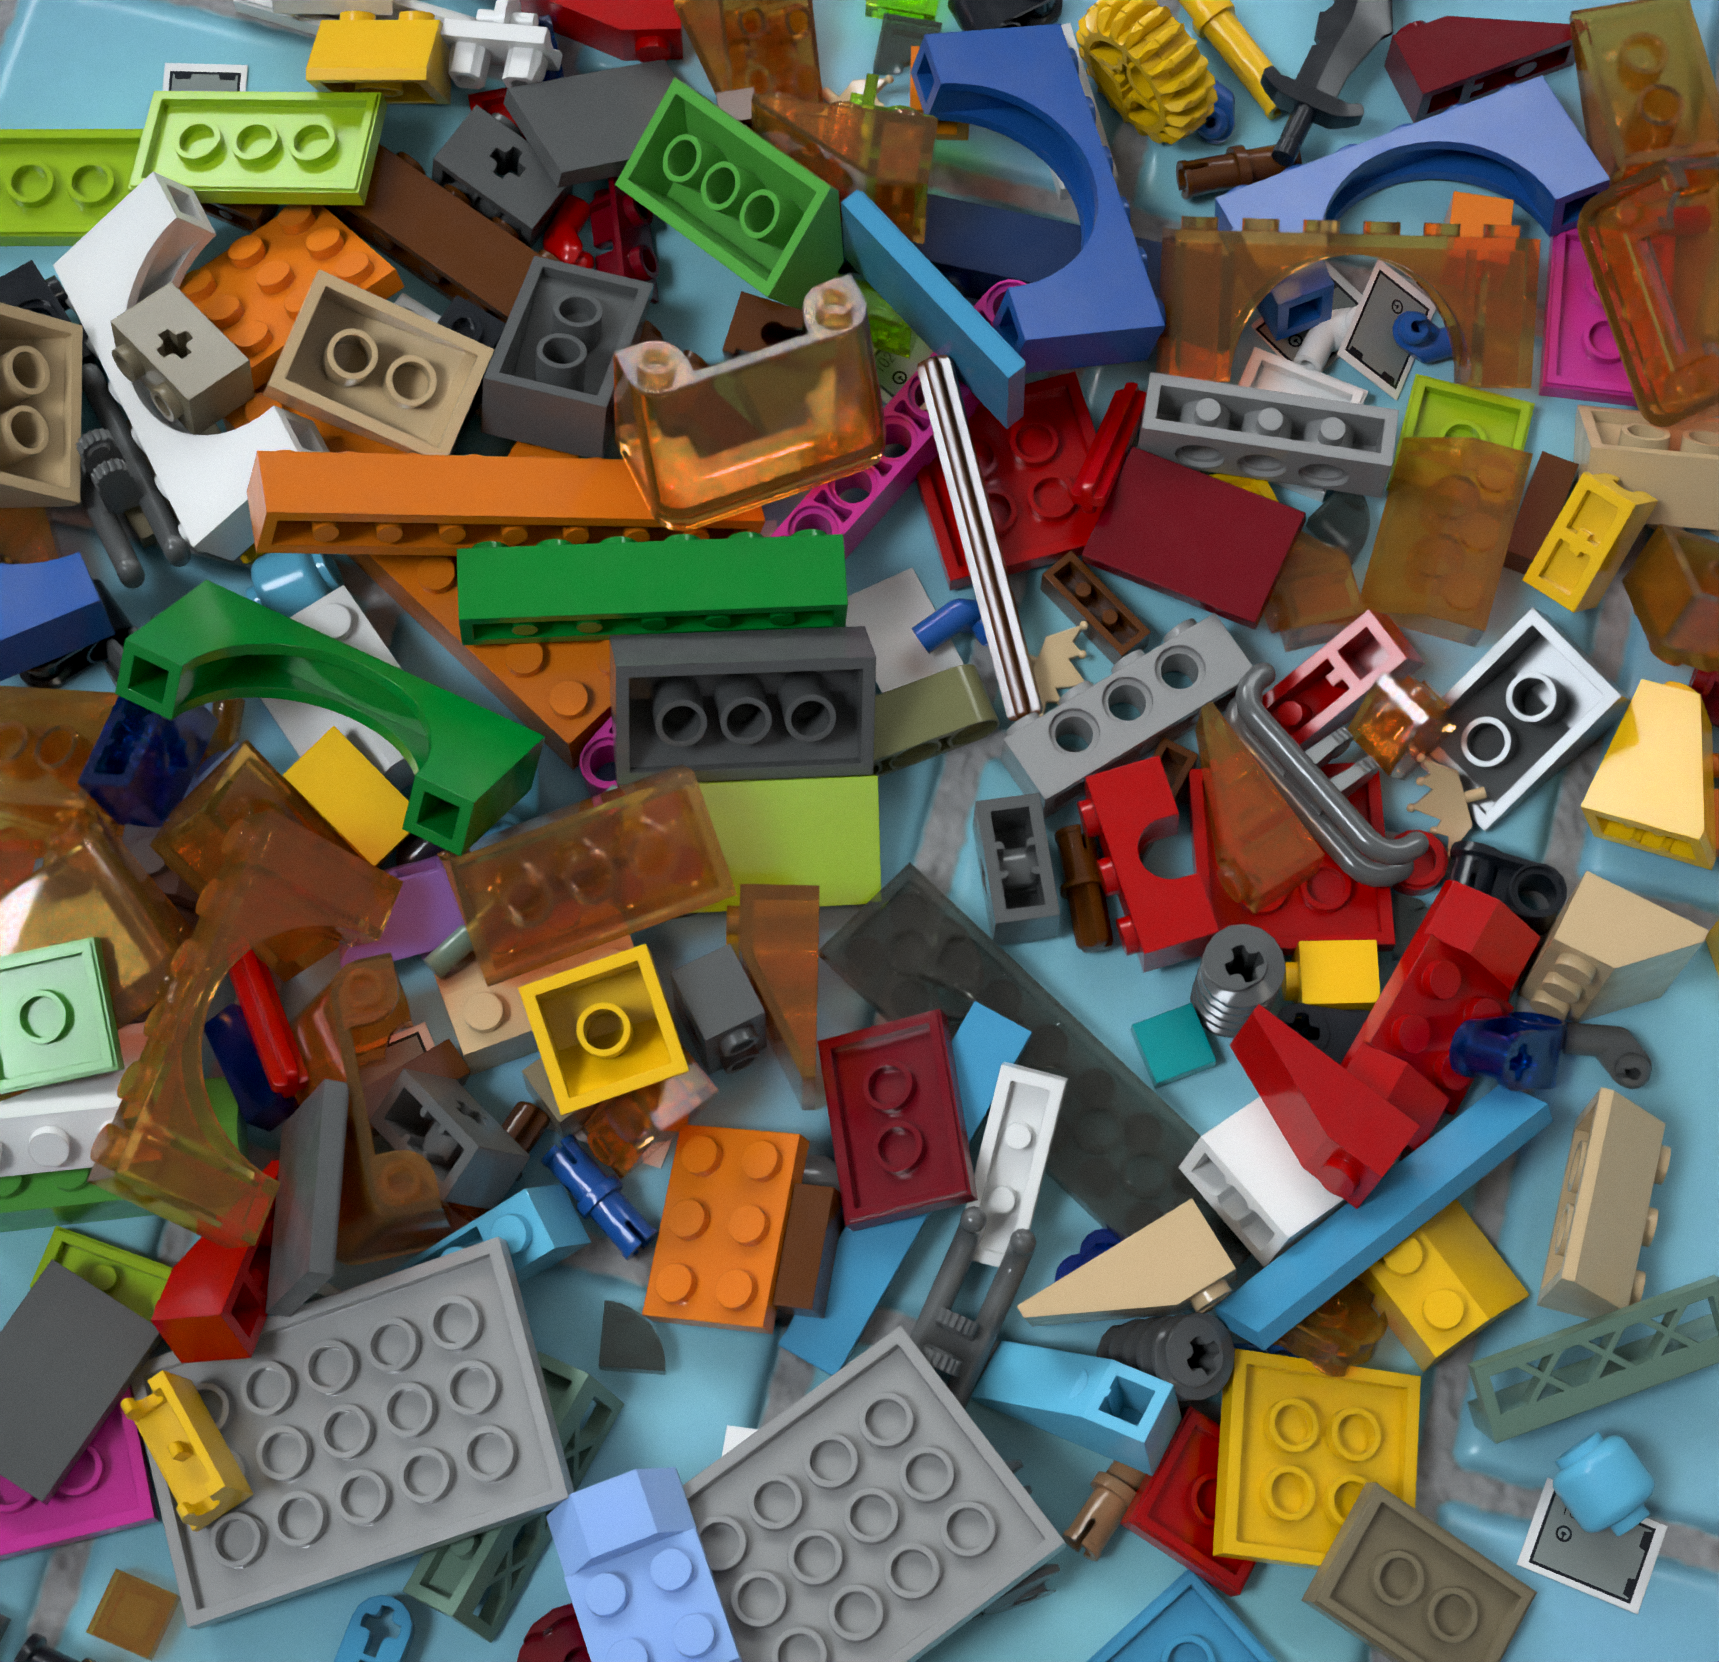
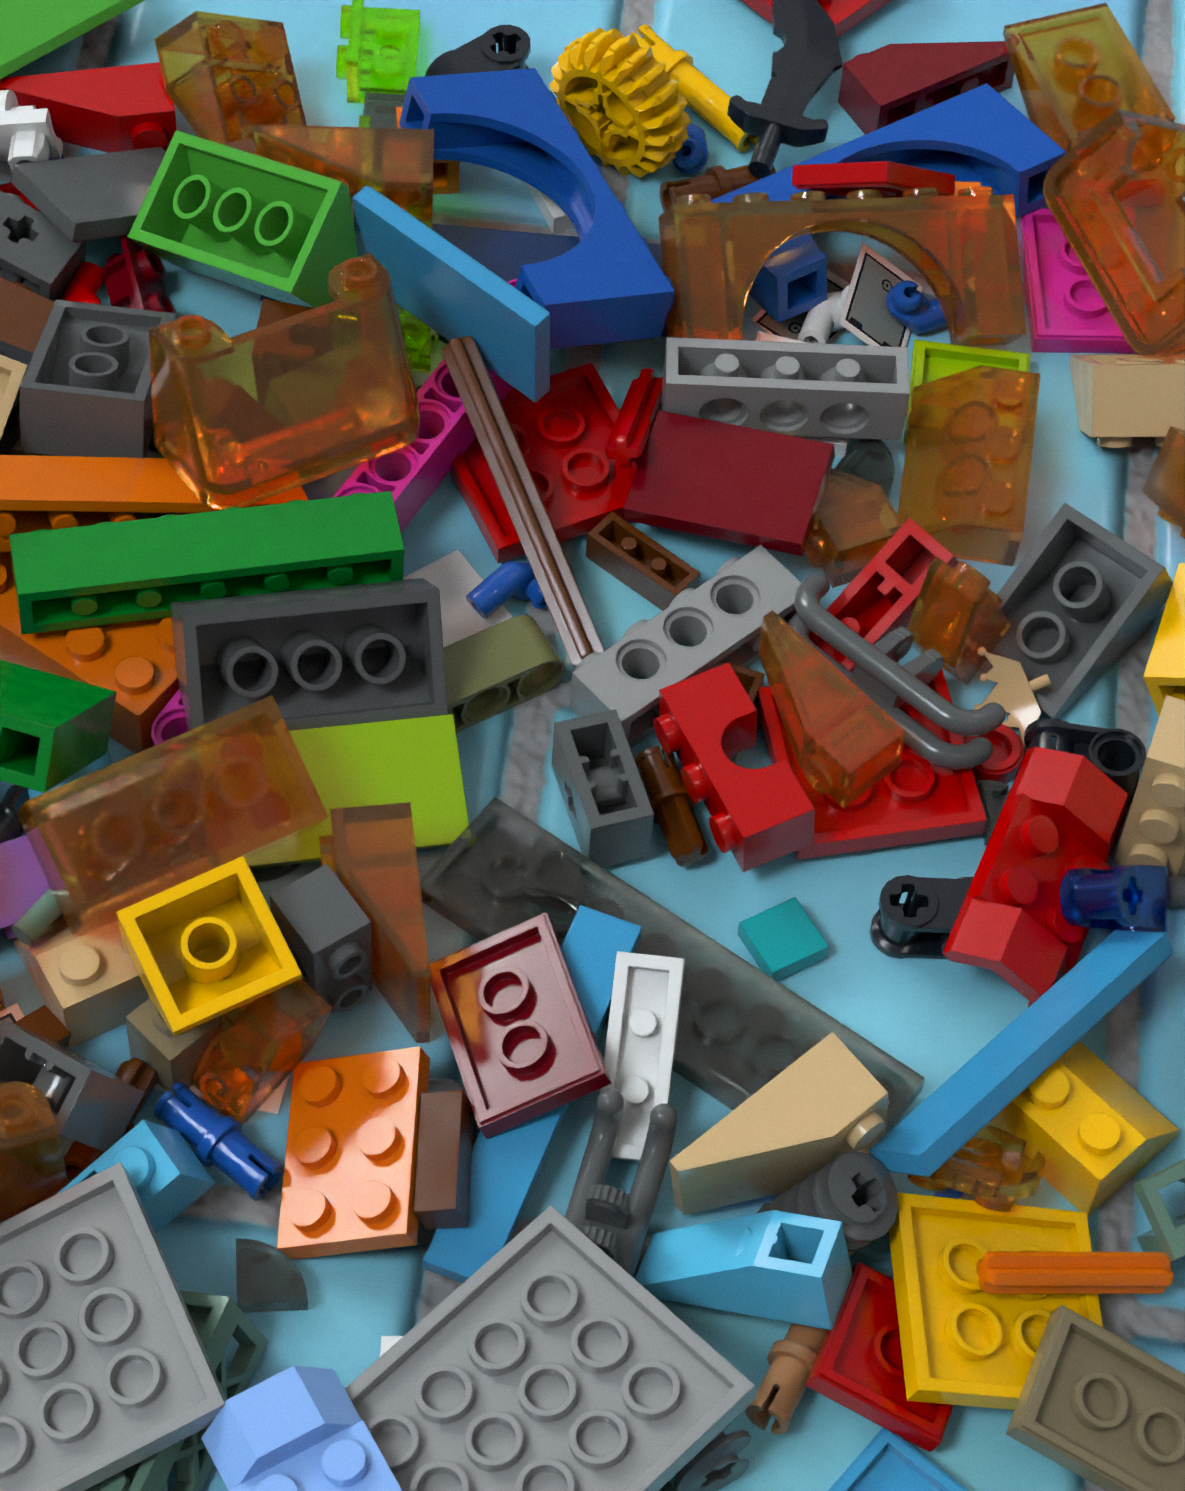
camera: 10 degrees left, 15 degrees down
(1053, 665) = (611, 610): tan piece -> none
(1235, 975) = (839, 861): dark grey piece -> none
(1258, 1183) = (915, 1018): white brick -> none
(1325, 1113) = (942, 954): red slope -> none
(1333, 974) = (930, 848): yellow brick -> none
(1396, 1444) = (1074, 1272): none -> orange axle
(1397, 197) = (886, 176): none -> red tile
(1539, 510) = (1053, 444): reddish brown piece -> none
(1589, 541) = (1106, 450): yellow hinge -> none

